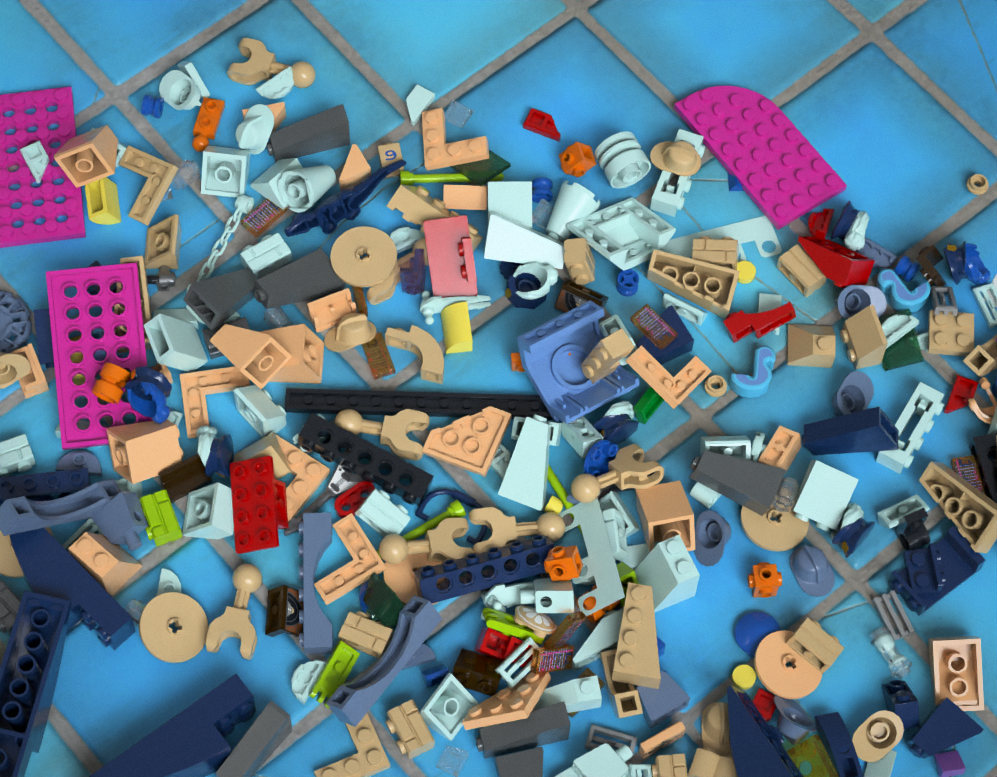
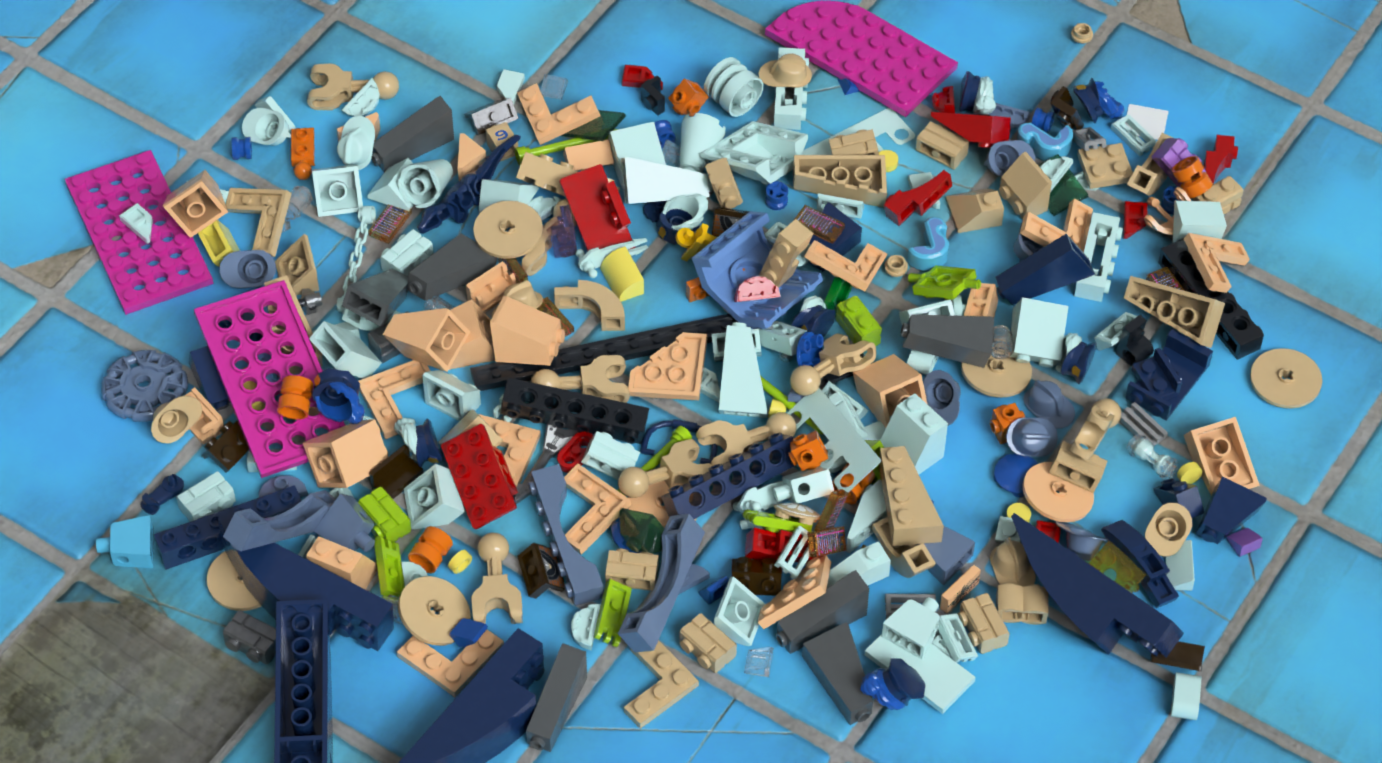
camera: 15 degrees left, 10 degrees down
(42, 411) = (228, 447): none -> dark brown bracket
(116, 234) = (247, 268): none -> sand blue piece
(148, 571) = (389, 567): none -> lime hinge
(176, 694) = (447, 674): none -> light nougat plate
(188, 565) = (430, 549): none -> orange wheel
(197, 656) = (467, 632): none -> blue slope
(213, 583) = (460, 562): none -> light yellow tile
(343, 369) = (524, 334): none -> light nougat slope
(376, 214) = (500, 190): none -> light aqua slope
(391, 129) = (492, 114): none -> panel
(533, 314) = (693, 241): none -> yellow hips
(543, 147) = (651, 95): none -> black bracket
(571, 380) = (755, 289): none -> plate
(659, 438) = (858, 321): none -> lime brick
(721, 692) = (1006, 529): none -> light aqua plate
(753, 417) = (944, 282): none -> lime plate
(782, 601) = (1032, 437): none -> sand blue piece
(858, 598) = (1103, 415): none -> tan piece
(896, 397) = (1075, 226): none -> light nougat plate
(920, 679) = (1189, 472): none -> light yellow tile

